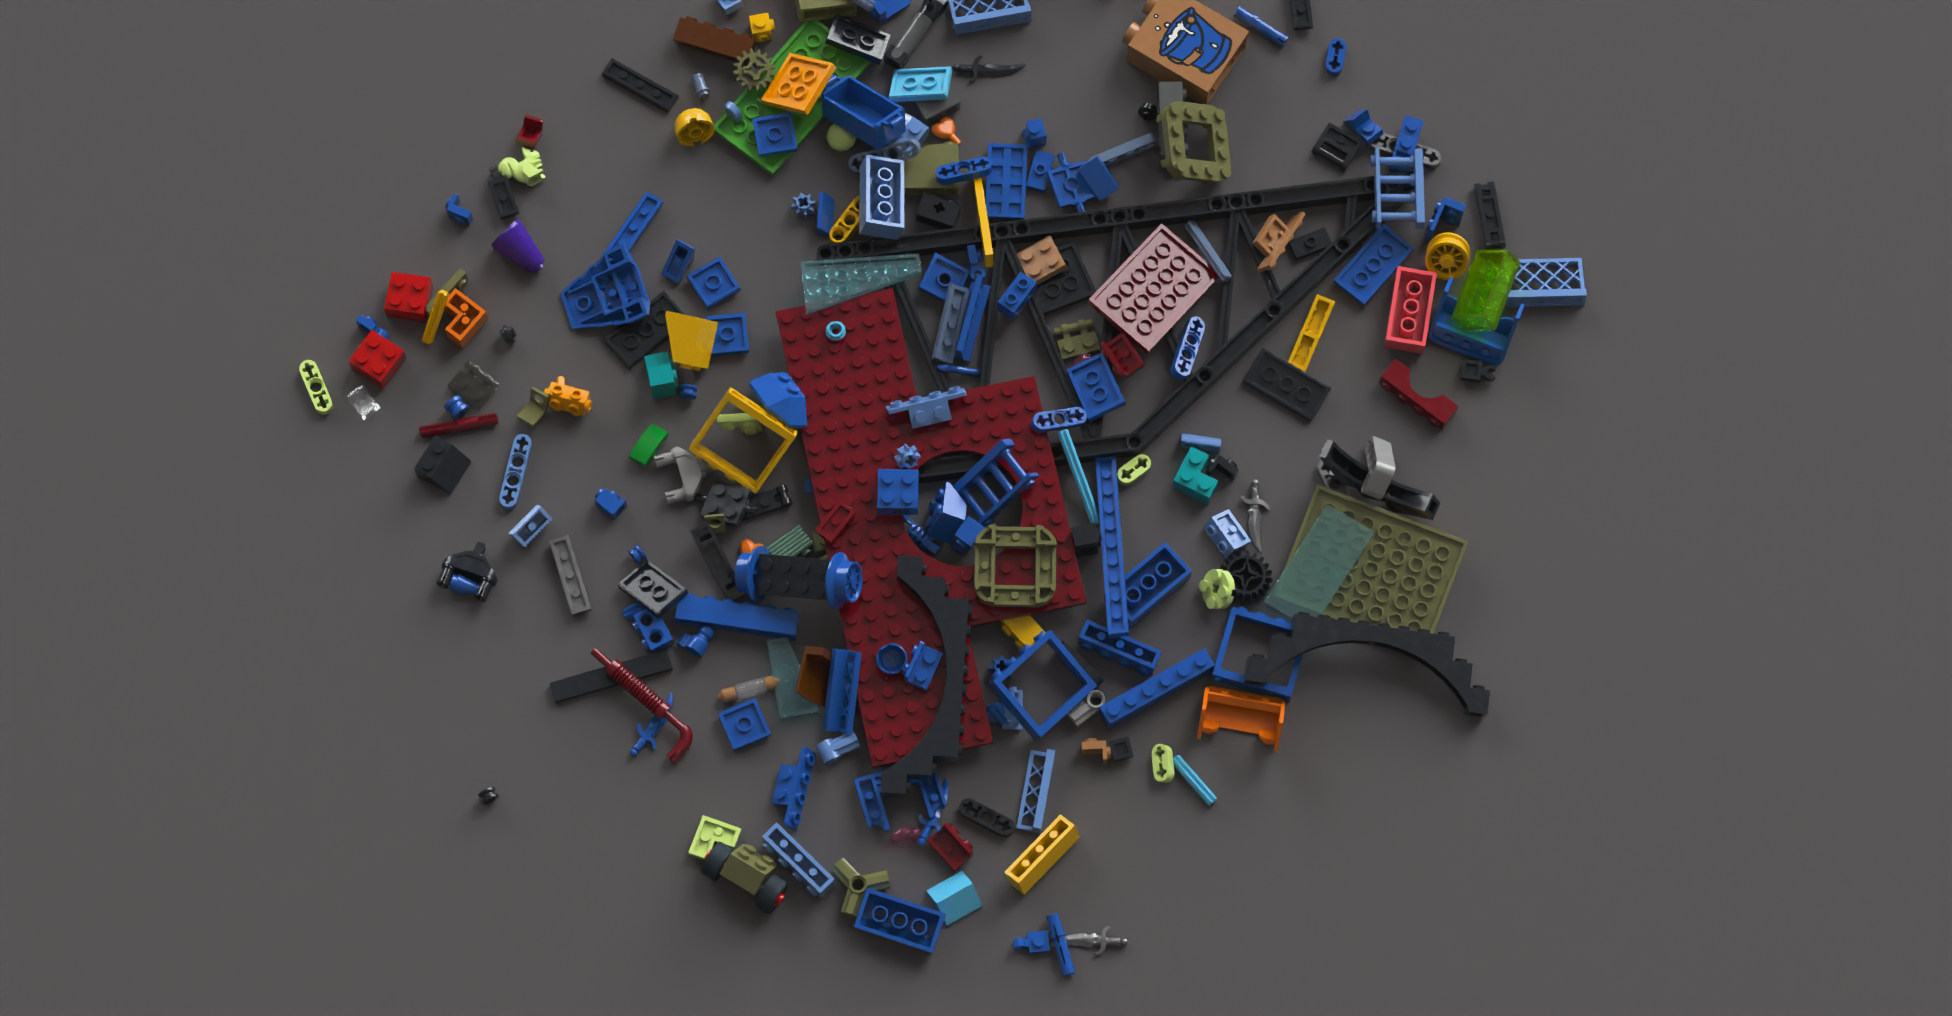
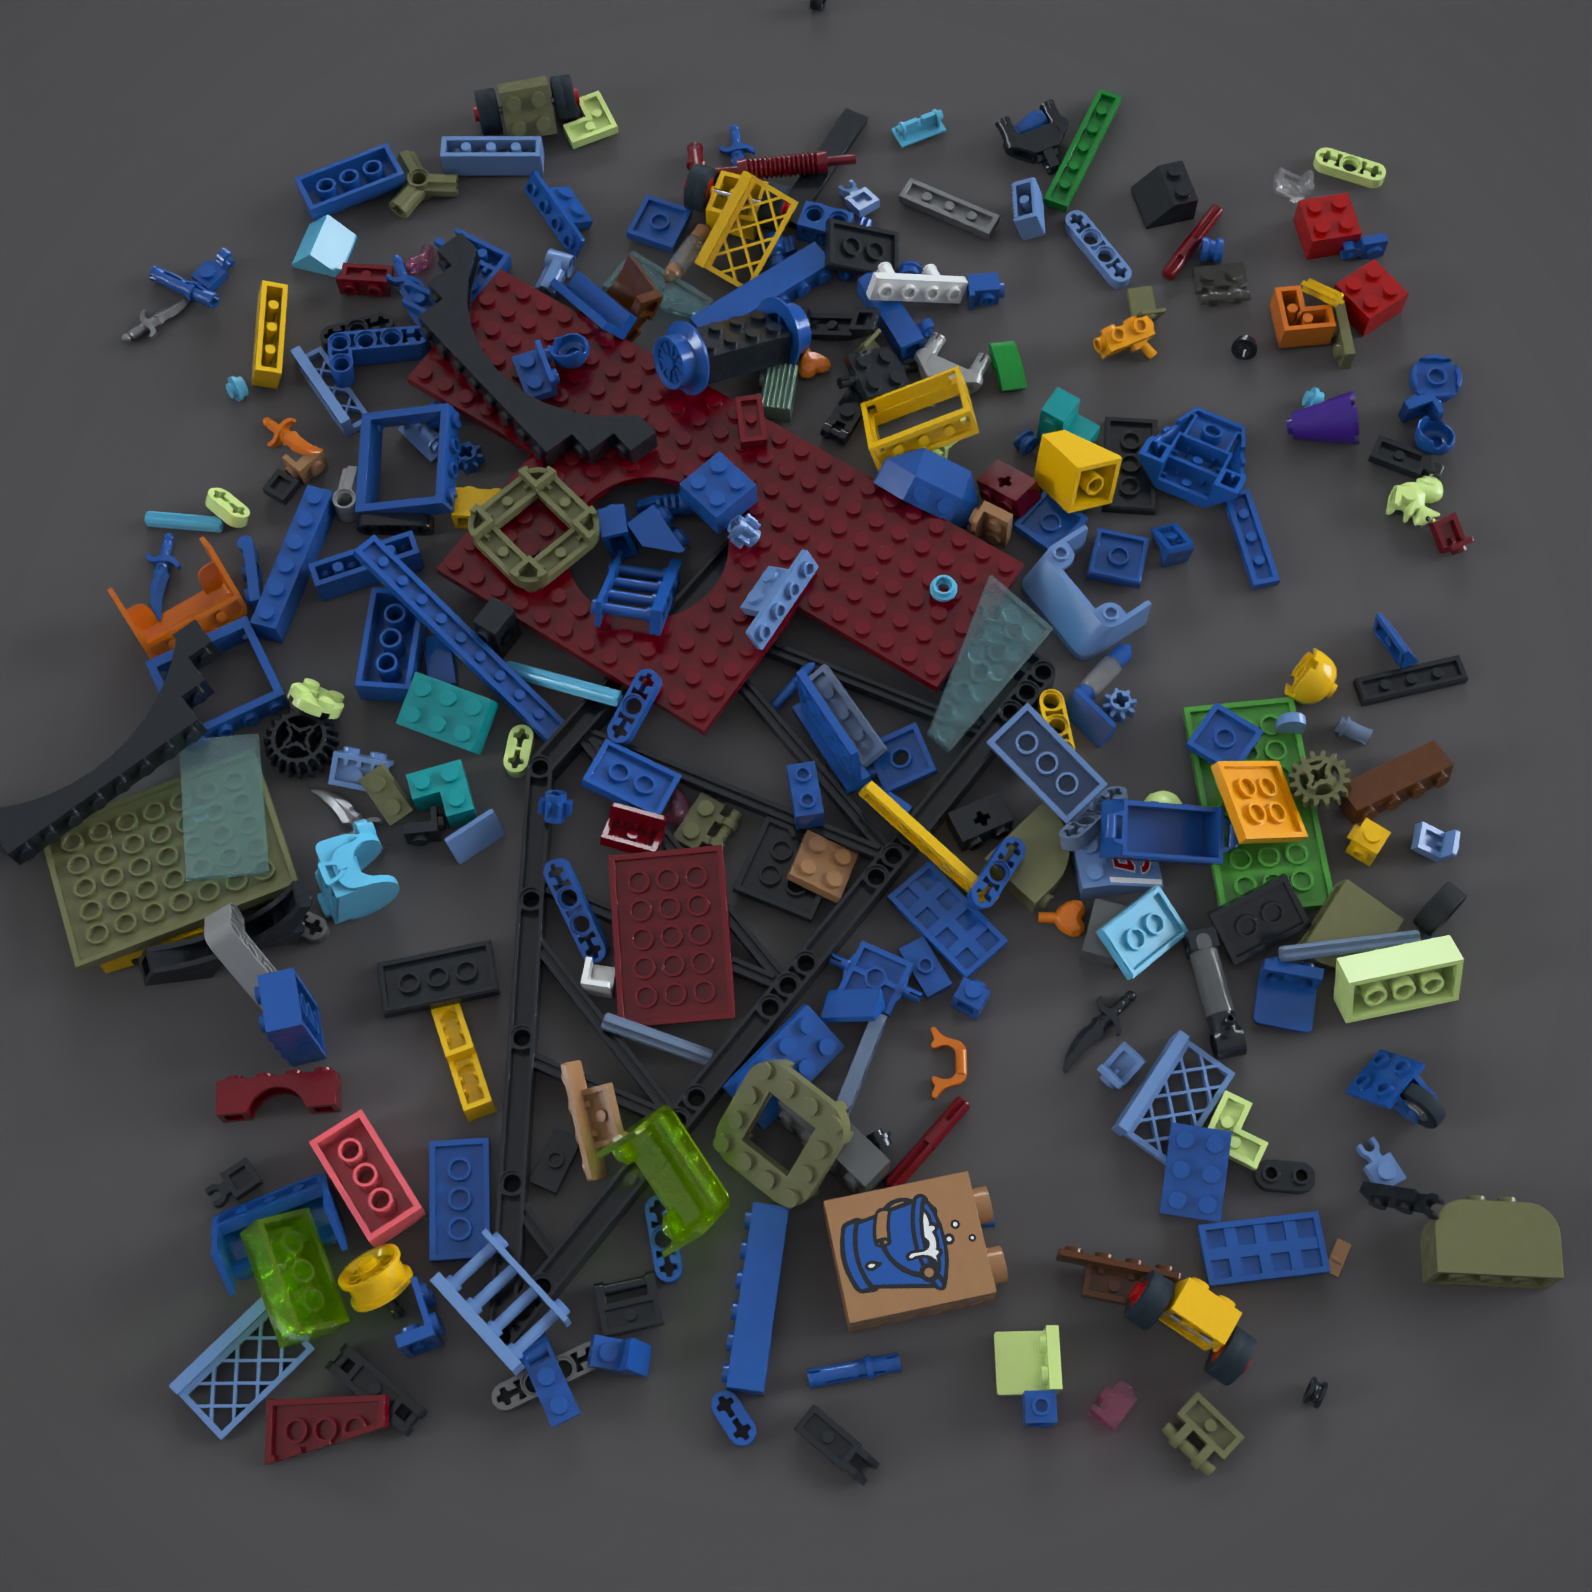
camera: 140 degrees right, 5 degrees down
(426, 224) = (1436, 375): none -> blue tile
(451, 540) = (1082, 150): none -> green plate
(472, 189) = (1434, 437): none -> blue hair
(509, 270) = (1312, 397): none -> medium azure plate
(527, 647) = (919, 129): none -> medium azure hinge
(615, 629) = (859, 200): none -> medium blue plate
(626, 107) = (1393, 642): none -> blue slope
(666, 537) = (923, 287): none -> white plate
(678, 536) = (896, 323): none -> blue brick
(690, 685) = (710, 195): none -> brick
(714, 667) = (728, 218): none -> yellow fence
(725, 359) = (1008, 488): none -> dark red brick
(767, 360) = (991, 523): none -> medium nougat bracket
(771, 296) = (1065, 608): none -> medium blue windscreen
(790, 230) = (1106, 670): none -> clear piece
(988, 786) = (373, 347): none -> blue beam
(998, 39) = (1121, 1066): none -> medium blue bracket
(1070, 112) = (960, 1063): none -> orange helmet
(1090, 765) = (289, 438): none -> orange piece
(1090, 841) = (237, 388): none -> medium azure plate
(1122, 91) = (928, 1143): none -> dark red axle
(1133, 552) = (440, 661): none -> blue slope
(1150, 403) = (555, 806): none -> blue gear
(1154, 184) = (801, 1040): none -> blue plate
(1154, 516) = (447, 713): none -> teal brick
(1185, 706) = (251, 570): none -> blue plate
(1208, 309) = (598, 979): none -> white panel
(1226, 503) = (387, 794): none -> olive plate
(1235, 756) = (161, 573): none -> blue piece
(1261, 168) = (675, 1173): none -> clear neon green windscreen
(1275, 93) = (757, 1299): none -> blue brick
(1290, 472) = (343, 887): none -> medium azure animal
(1292, 170) = (659, 1263): none -> blue beam
(1383, 407) = (290, 1017): none -> blue brick
(1532, 224) = (315, 1423): none -> dark red wing

